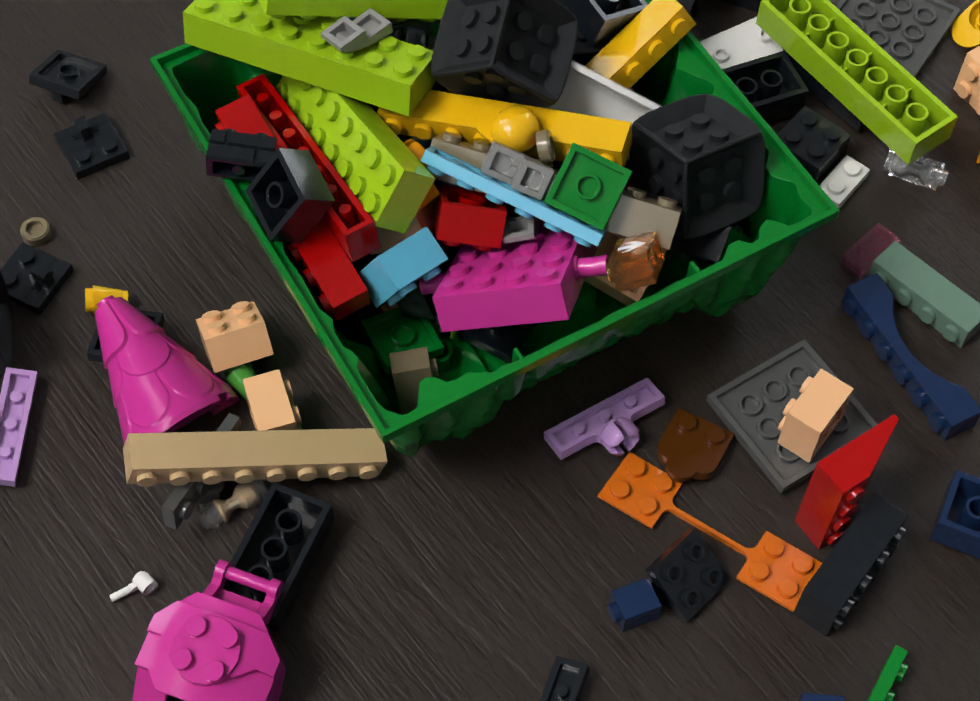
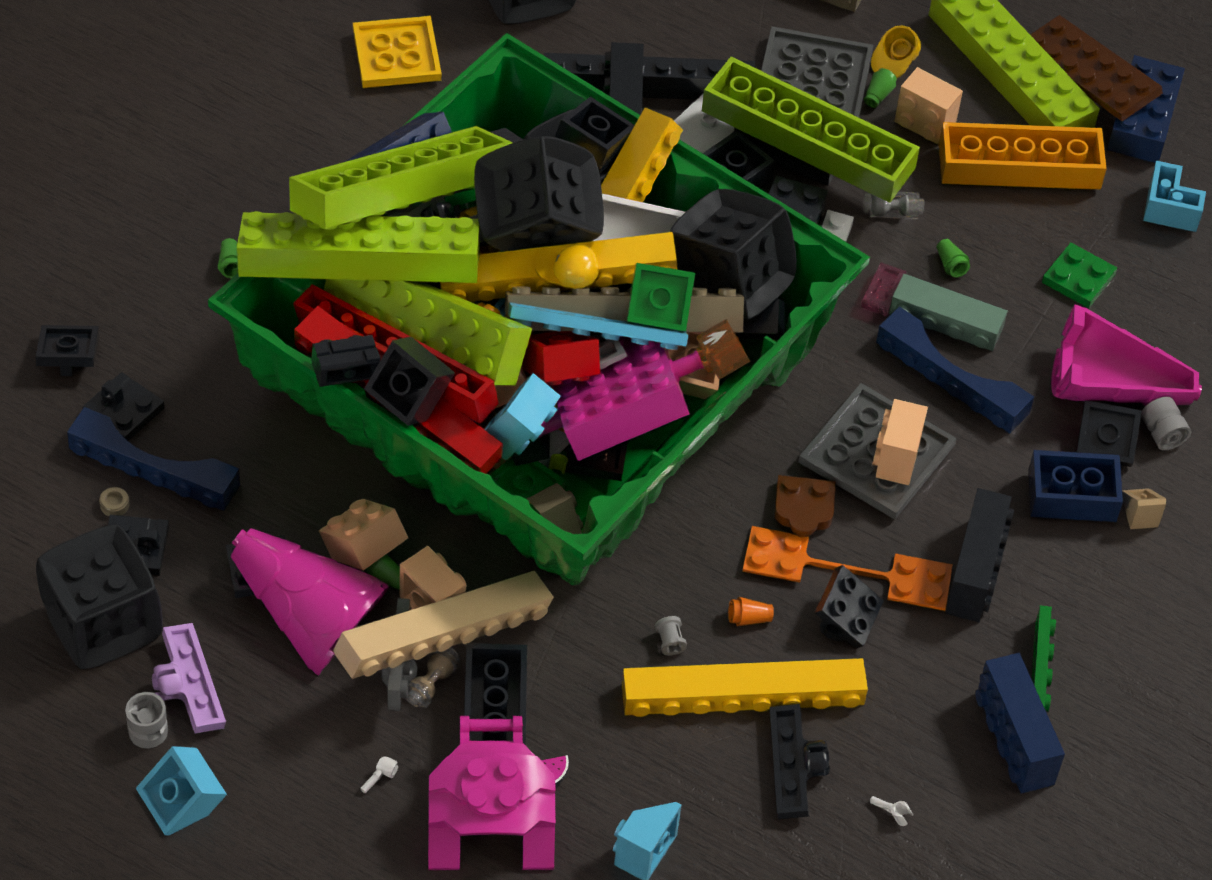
camera: 25 degrees left, 5 degrees down
(97, 293) = (214, 542): yellow cone -> none
(123, 236) = (203, 480): none -> dark blue arch
(306, 646) = (559, 767): none -> dark pink tile
(359, 33) = (408, 220): light grey slope -> none
(491, 541) = (671, 635): none -> light grey bush
(517, 170) = (593, 301): light grey slope -> none
(541, 624) = (743, 686): none -> yellow brick
(545, 146) = (610, 273): dark tan tile -> none
(583, 543) = (748, 612): none -> orange cone
(607, 422) = (723, 506): lavender plate -> none
(634, 605) = (815, 643): dark blue brick -> none
(840, 484) = (949, 492): red slope -> none
(950, 51) = (880, 86): none -> bright green cone
(956, 241) = (953, 259): none -> bright green cone

